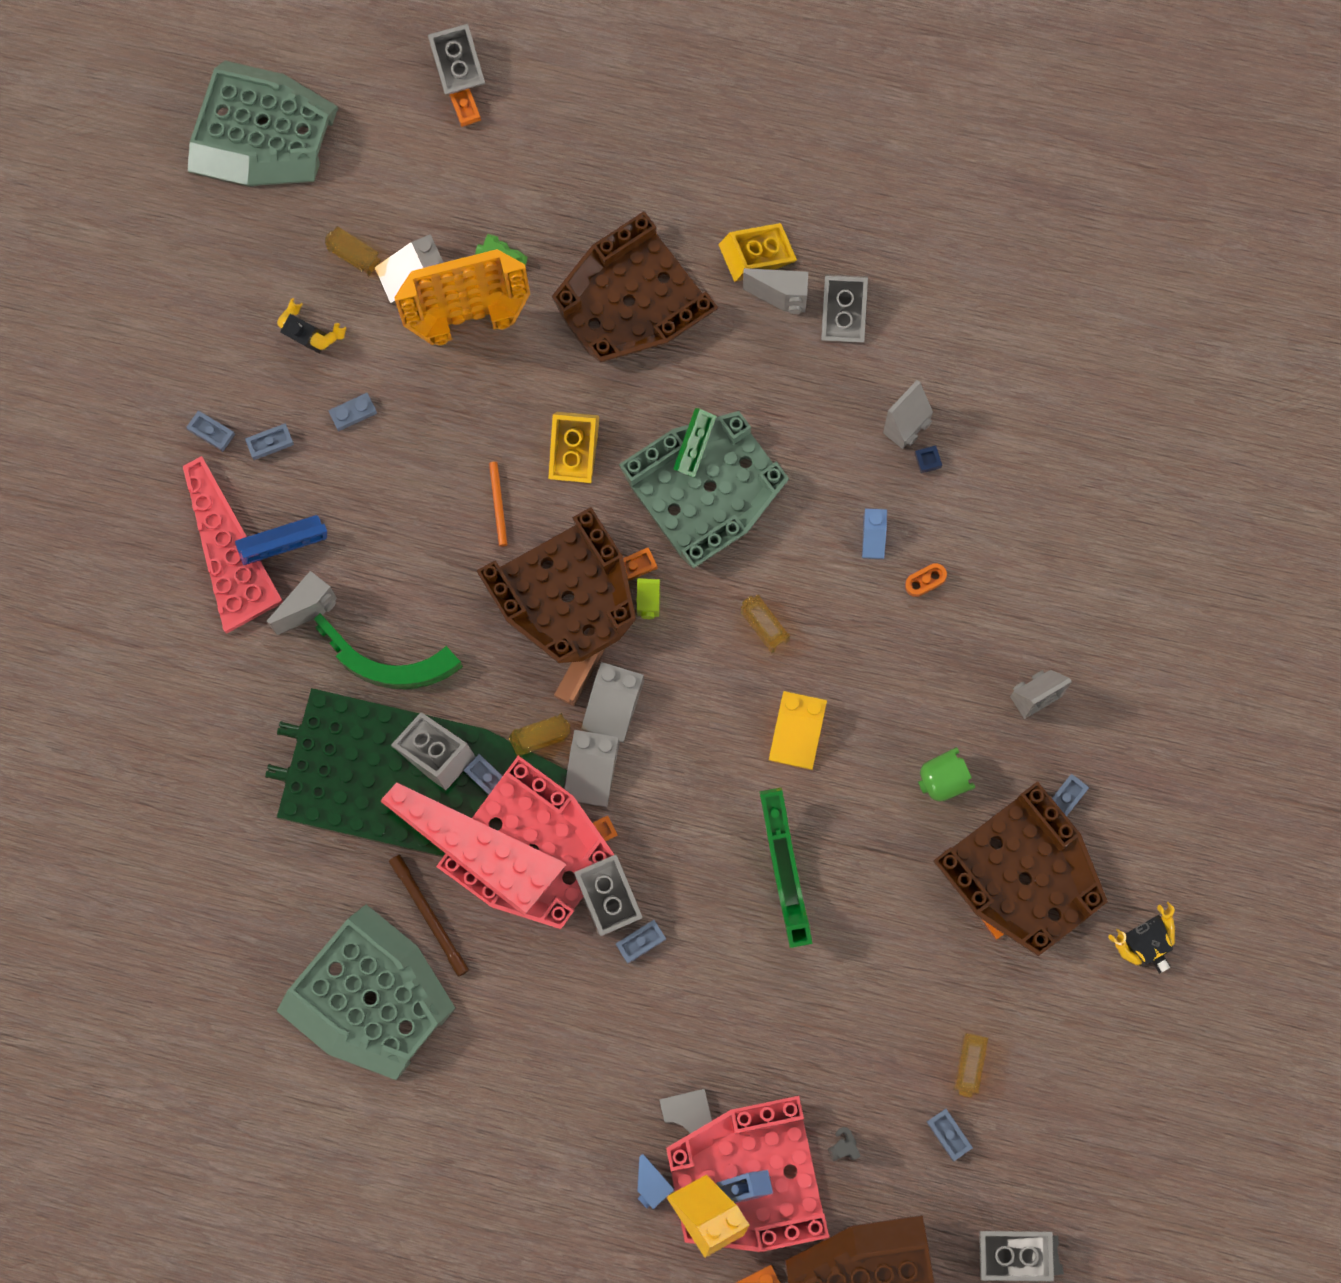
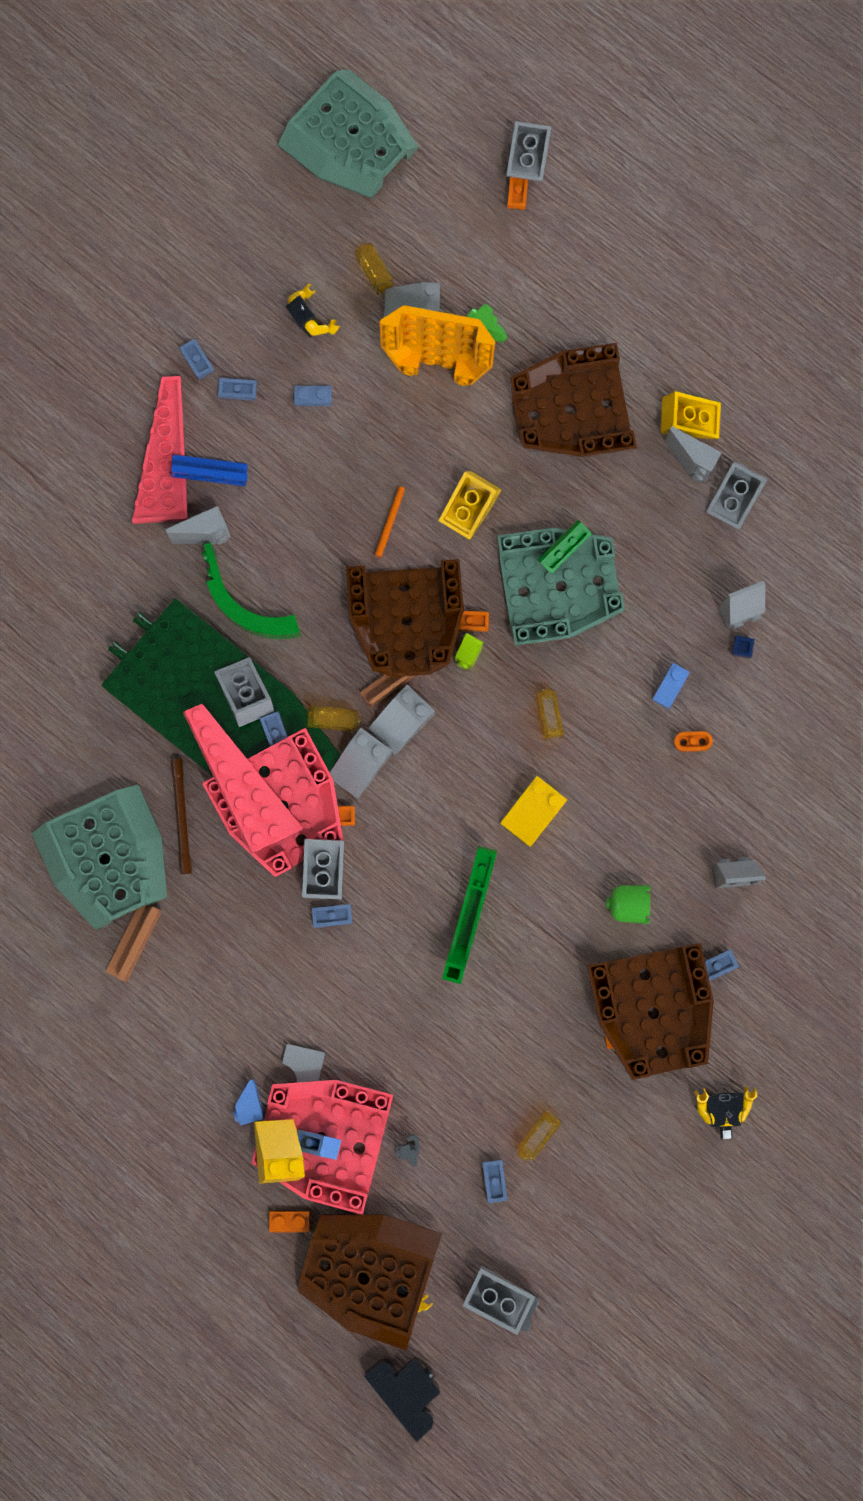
camera: 20 degrees right, 5 degrees up
(442, 1073) = (133, 942): none -> nougat panel

